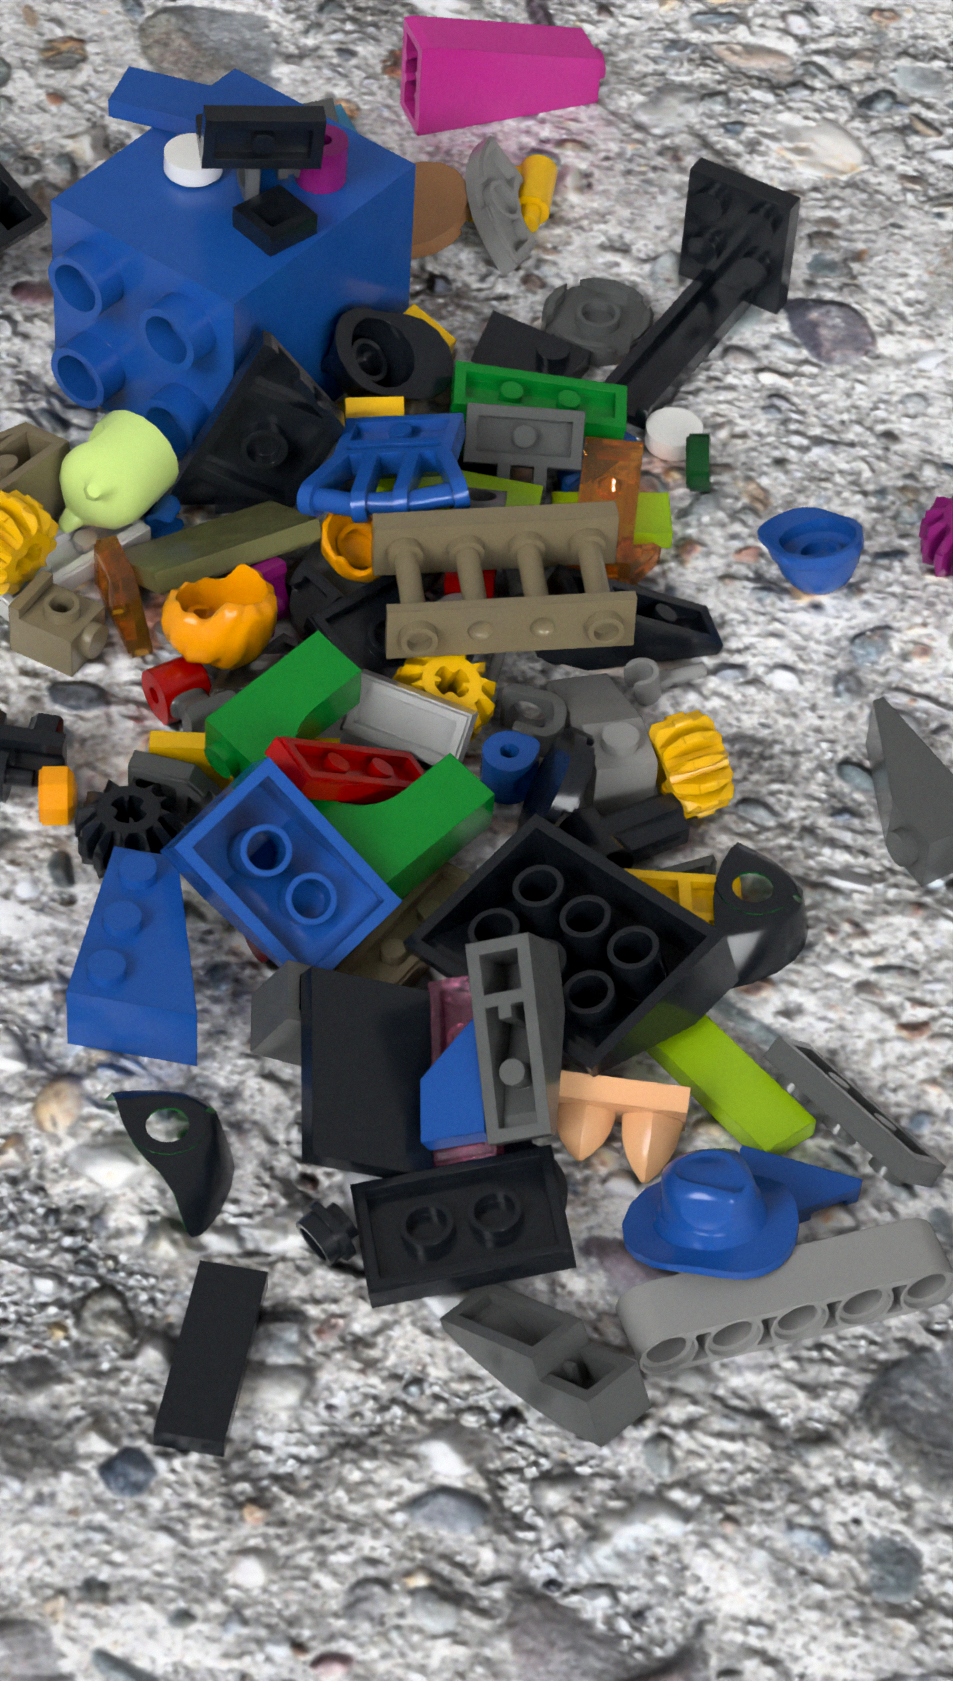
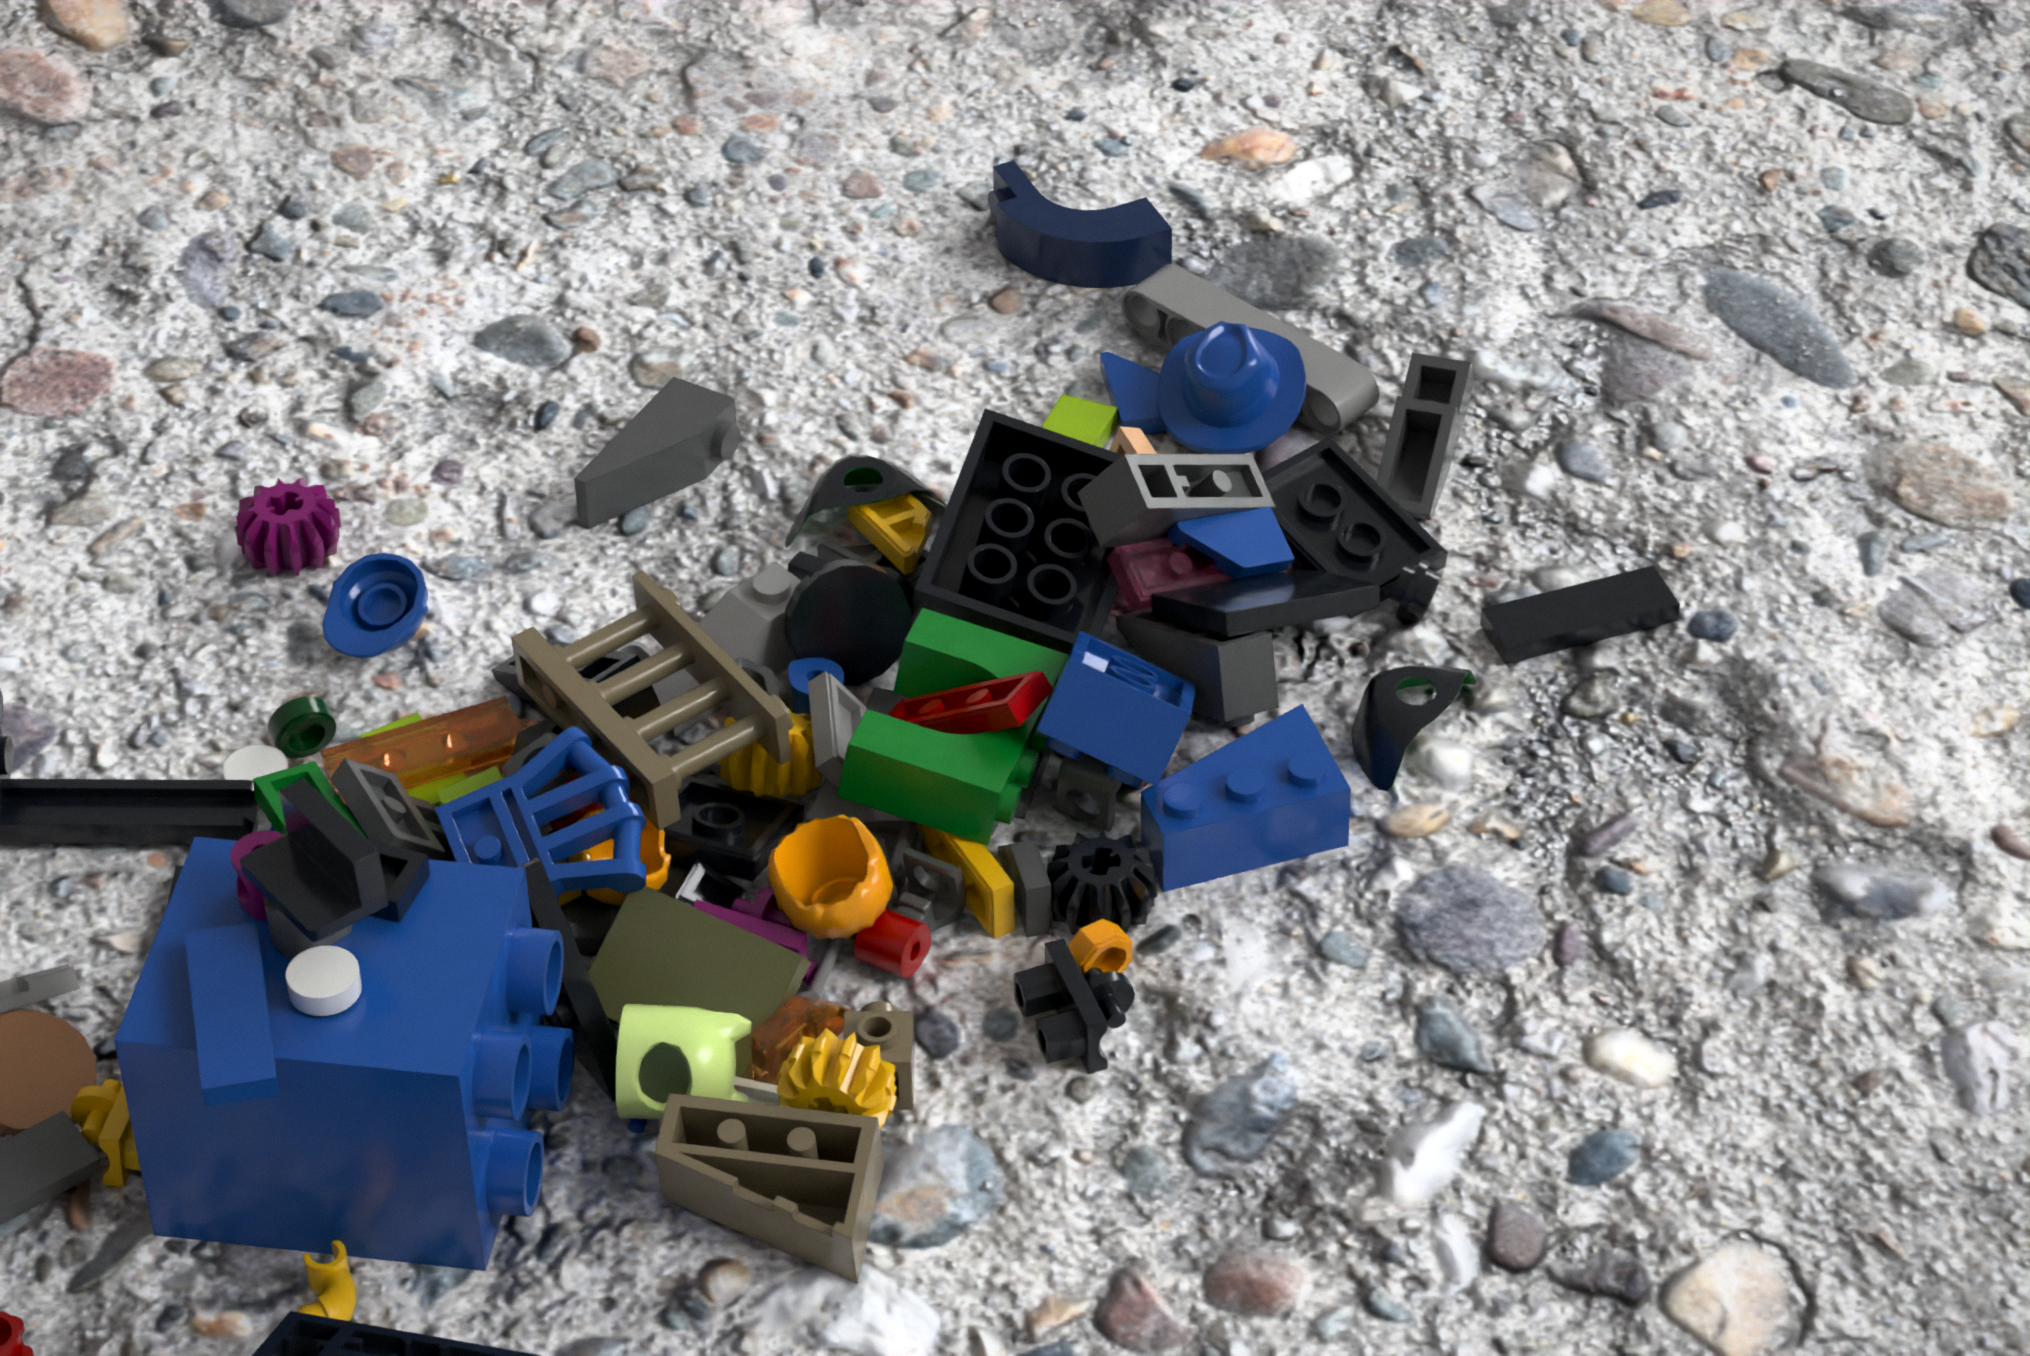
camera: 115 degrees left, 5 degrees down
(598, 317) = (107, 895): dark grey tile -> none
(692, 763) = (739, 552): yellow gear -> none
(853, 1114) = (1045, 364): dark grey plate -> none

